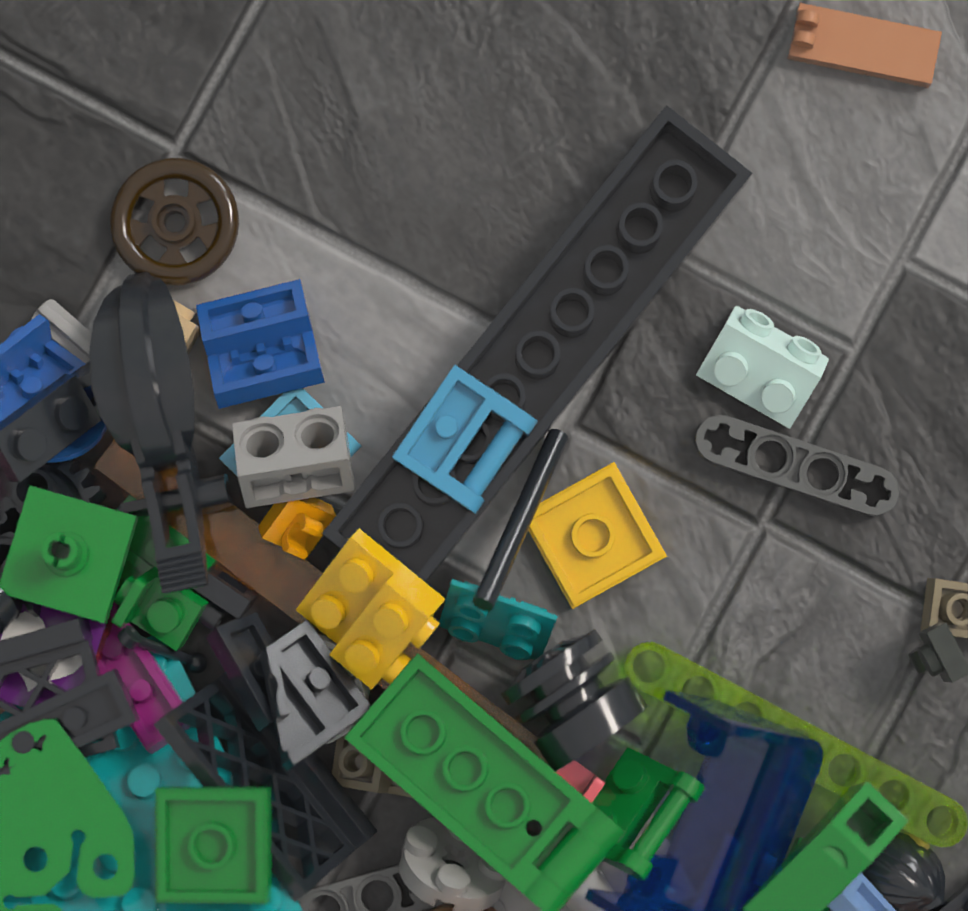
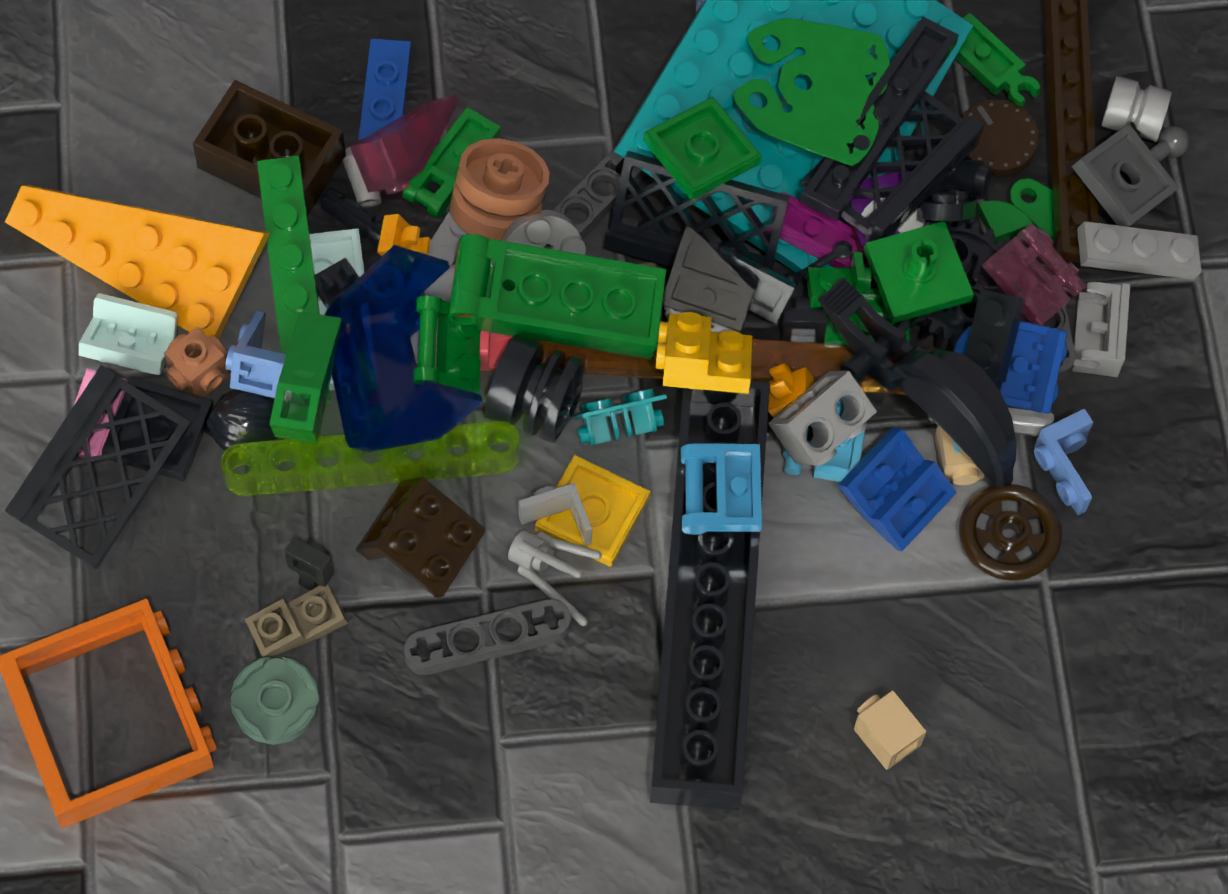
camera: 140 degrees right, 20 degrees down
(36, 280) = (1051, 450): none -> medium blue bracket
(459, 90) = (888, 728): none -> tan brick
(520, 520) = (648, 473): black bar -> none
(639, 562) = (554, 500): none -> light grey bracket
(693, 520) = (534, 553): none -> light grey plant
(763, 365) = (554, 687): light aqua bracket -> none
(796, 620) = (423, 535): none -> dark brown bracket

